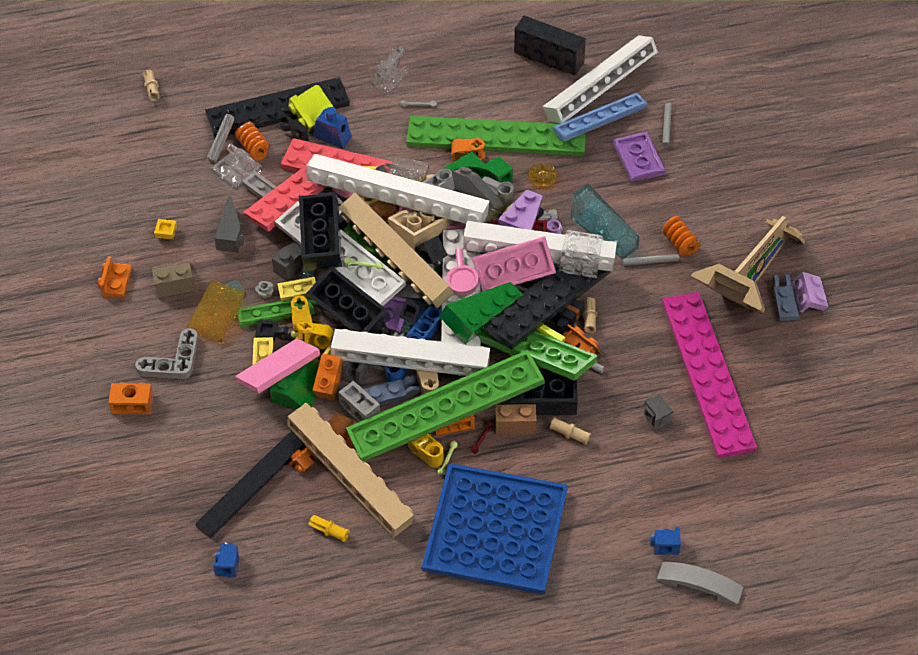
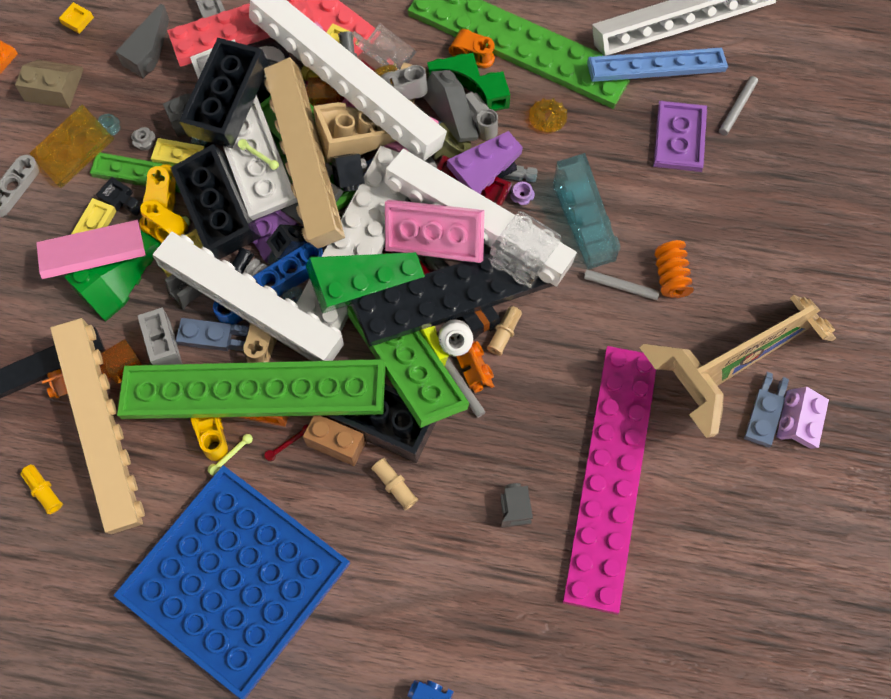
camera: 25 degrees right, 15 degrees up
(328, 377) = (142, 287): orange brick -> none
(462, 278) = (365, 222): bright pink piece -> none
(564, 323) = (455, 346): none -> white head

